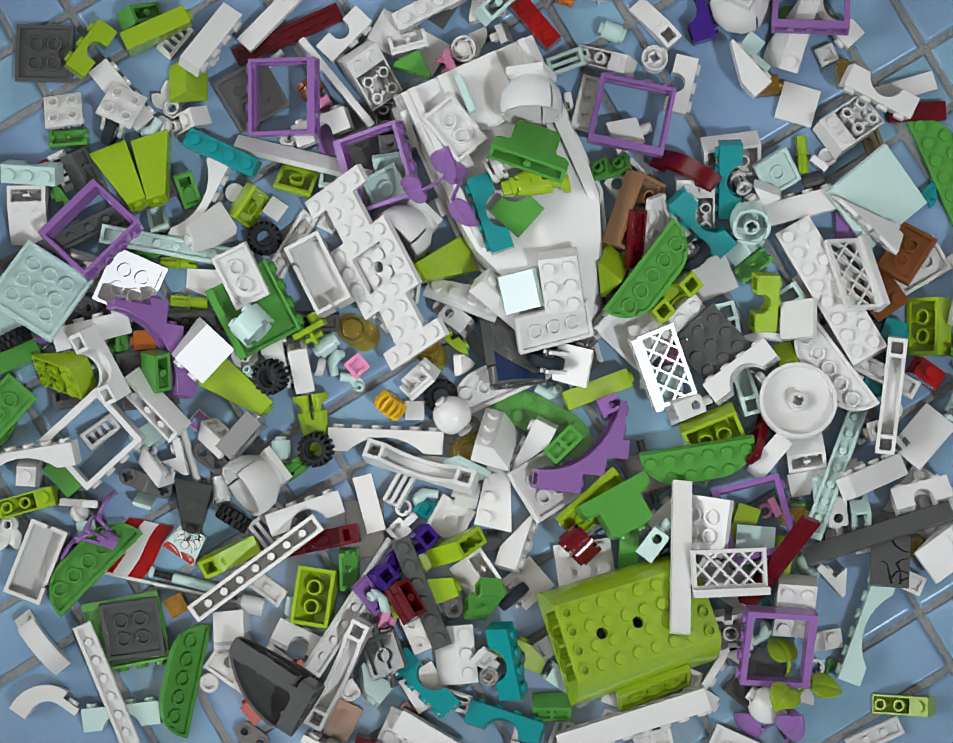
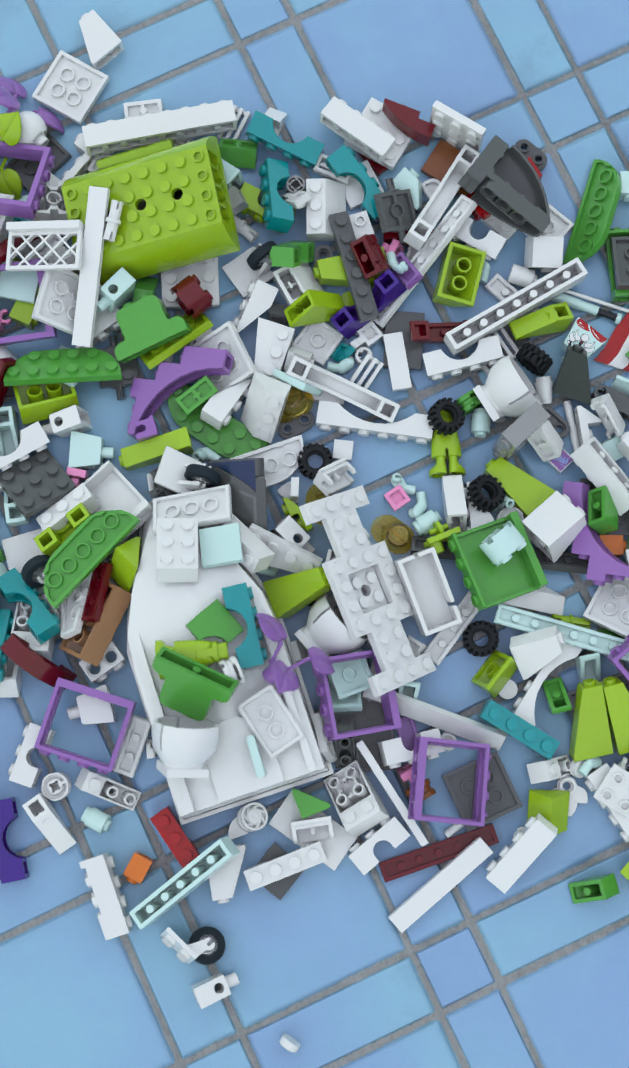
camera: 175 degrees left, 5 degrees down
(156, 30) = (579, 869): lime slope -> none
(177, 604) = (596, 283): pearl gold brick -> none
(185, 38) = (547, 859): white slope -> none
(189, 301) = (564, 581): lime axle -> none
(209, 682) = (569, 209): white tile -> none
(241, 275) = (509, 595): white tile -> none
(275, 209) = (466, 668): white tile -> none
(296, 181) = (443, 693): lime slope -> none
(320, 367) = (434, 501): white tile -> none
(348, 567) = (423, 301): bright green hinge -> none
(390, 405) = (367, 455): yellow gear -> none
(448, 59) = (270, 804): bright pink tile -> none
(452, 415) = (305, 436): white brick -> none
(502, 34) = (212, 828): white tile -> none
(536, 627) = (245, 230): none -> white pin
(581, 56) = (131, 796): light aqua tile -> none
(610, 168) = (112, 673): bright green slope -> none
(646, 372) = (103, 460): white fence -> none
(662, 601) = (113, 220): none -> white pin

